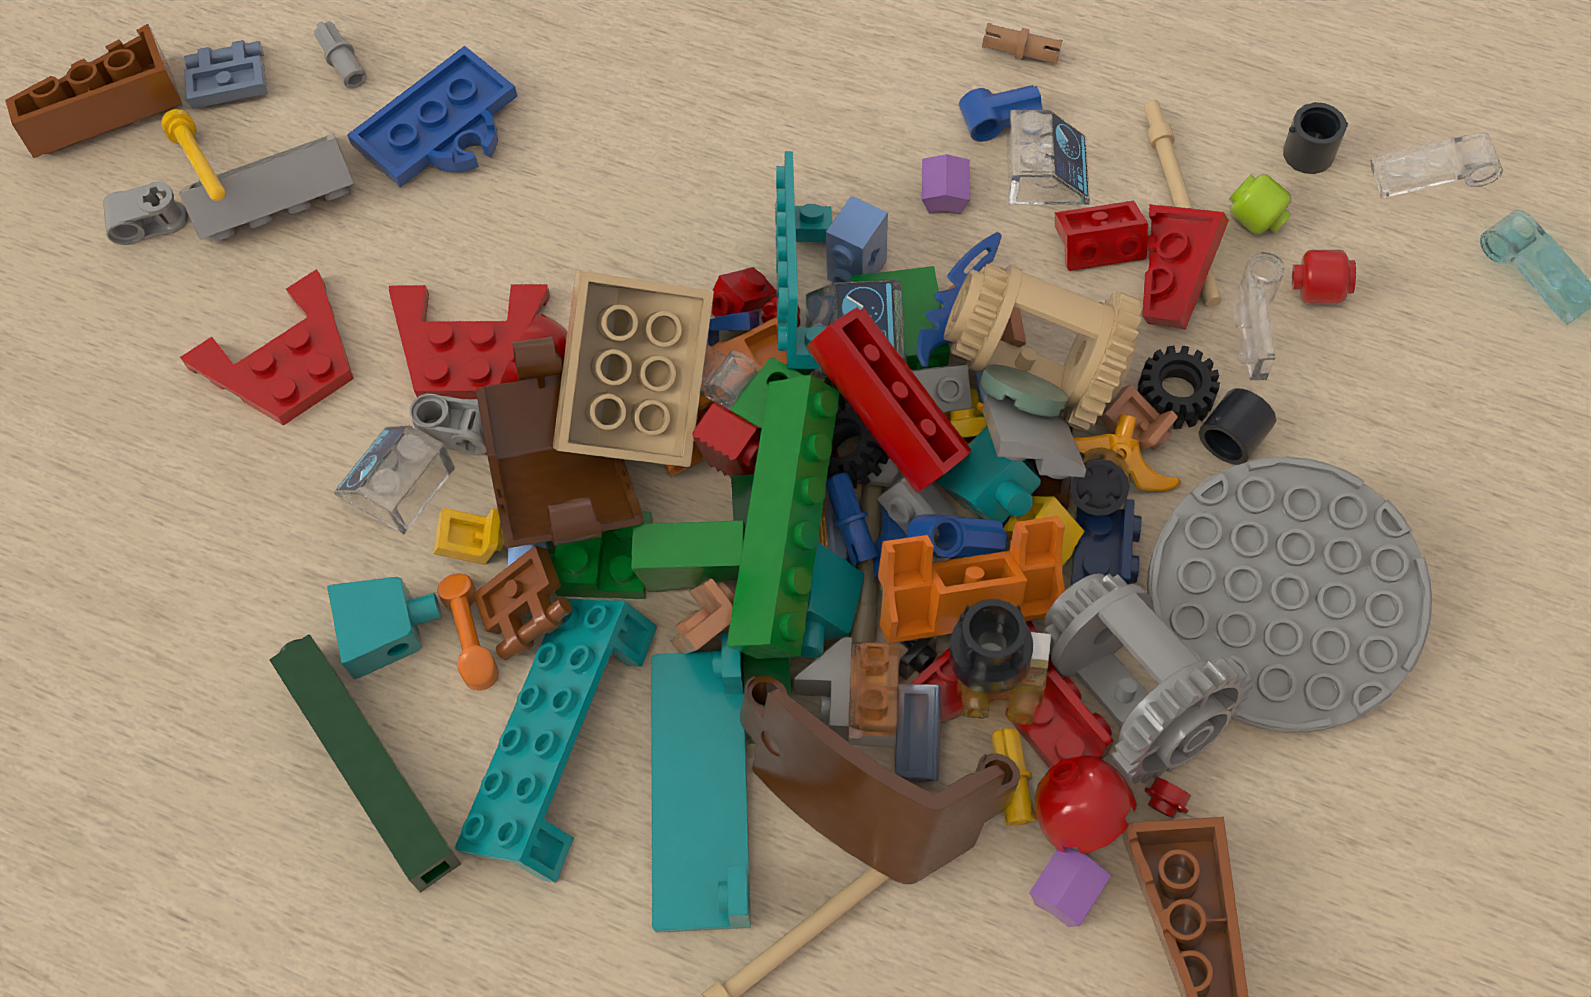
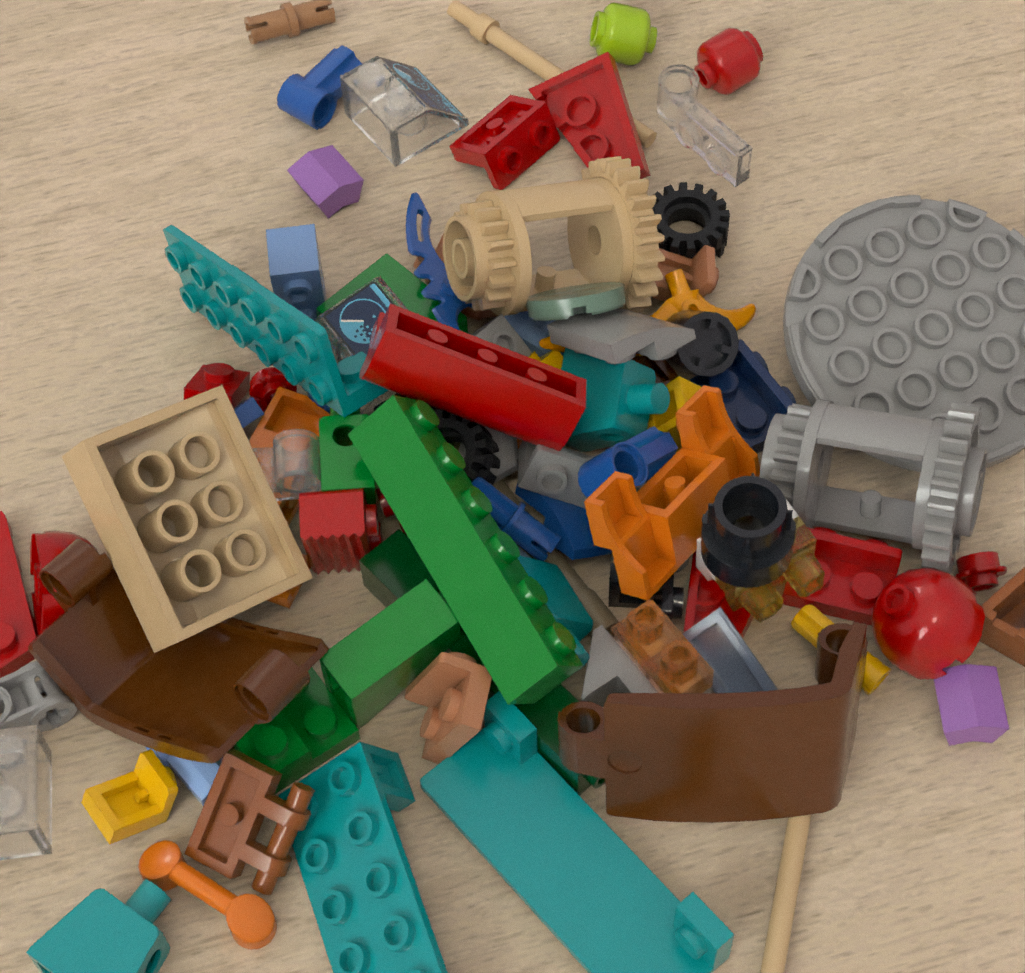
camera: 40 degrees left, 5 degrees down
(1237, 426) = (767, 226): black piece -> none

